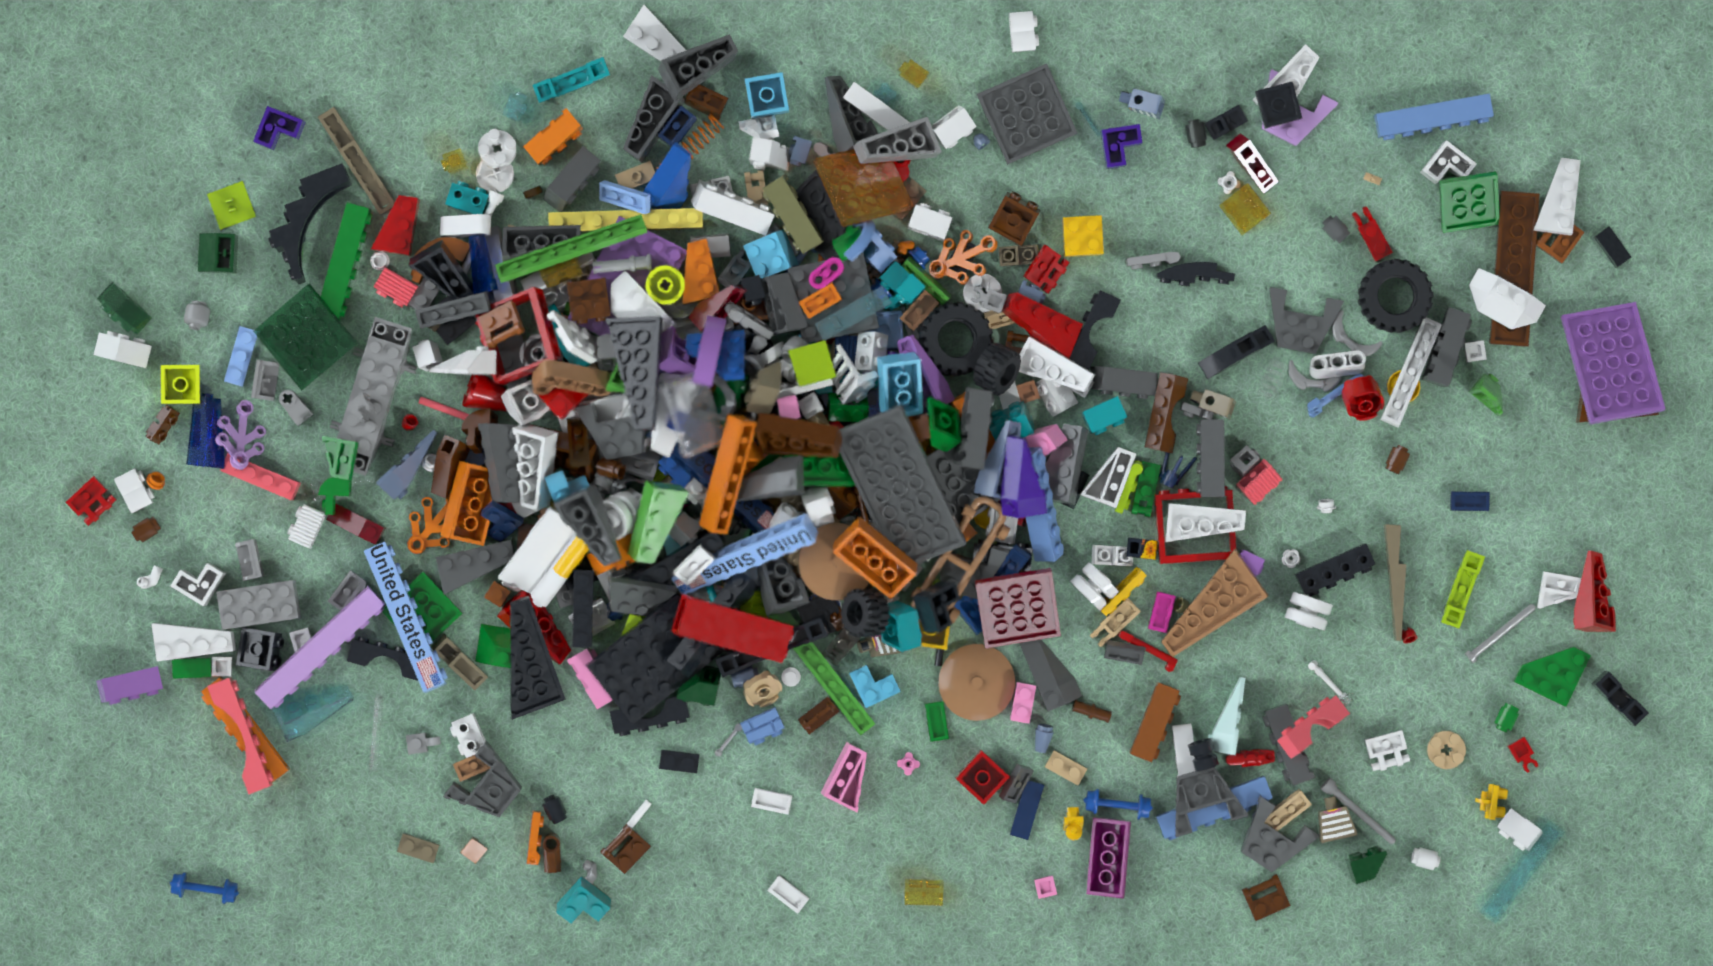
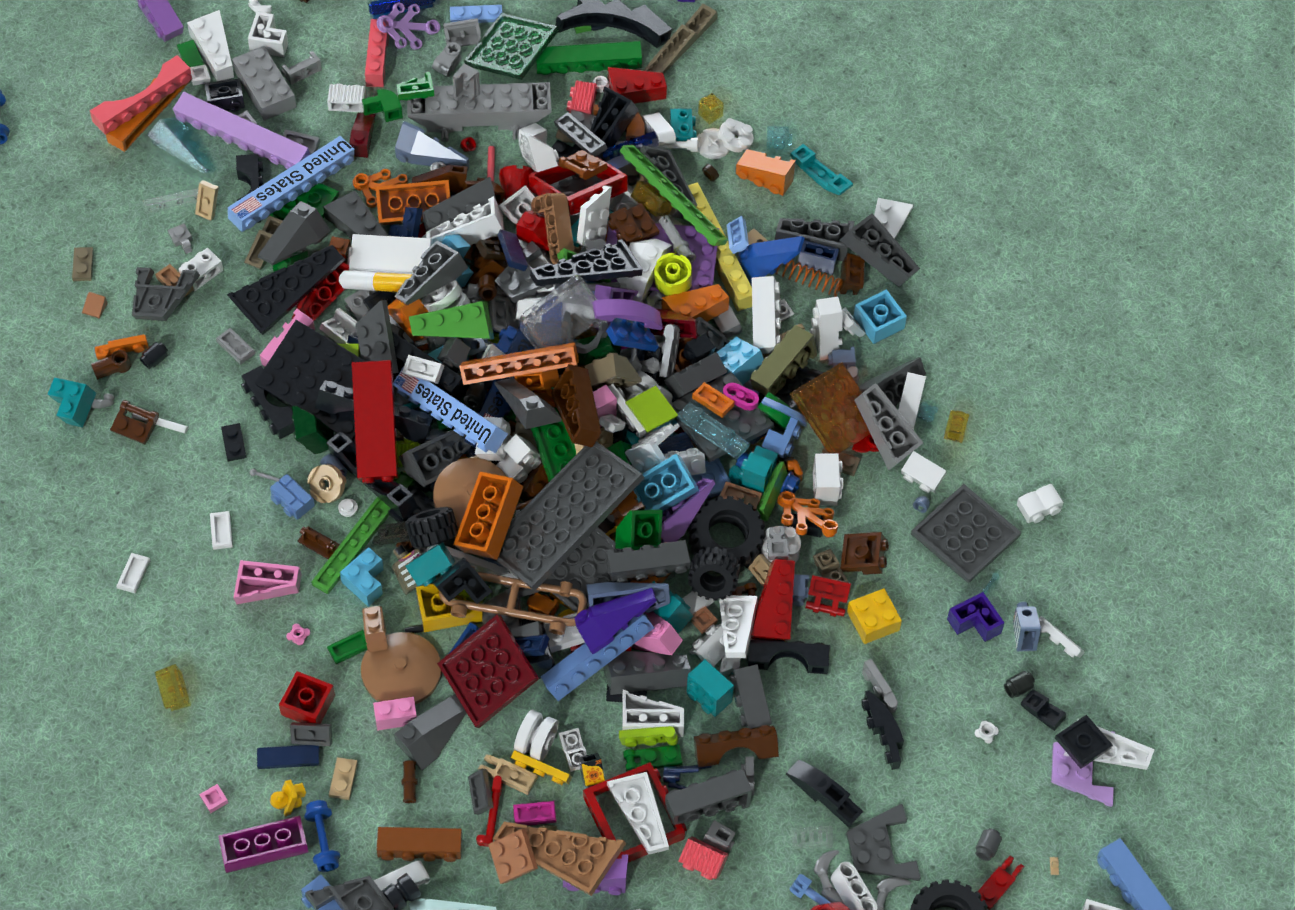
camera: 70 degrees right, 30 degrees down
(392, 706) = (206, 200): none -> tan plate
(469, 629) = (296, 232): none -> dark grey wedge
(571, 728) = (235, 346): none -> light grey plate
(572, 179) = (735, 194): dark grey wedge -> none
(583, 608) = (346, 310): black brick -> none
(586, 432) = (512, 250): none -> dark blue tile
(934, 694) = (375, 628): none -> medium nougat brick
(1043, 736) = (367, 745): sand blue cone -> none
(1164, 75) = (1058, 637): none -> white hinge
(1199, 646) = (513, 856): none -> nougat plate
(1222, 406) = (764, 785): dark tan torso -> none
(1244, 209) = (968, 754): clear yellow hinge -> none
(1252, 162) = (1015, 745): slope -> none

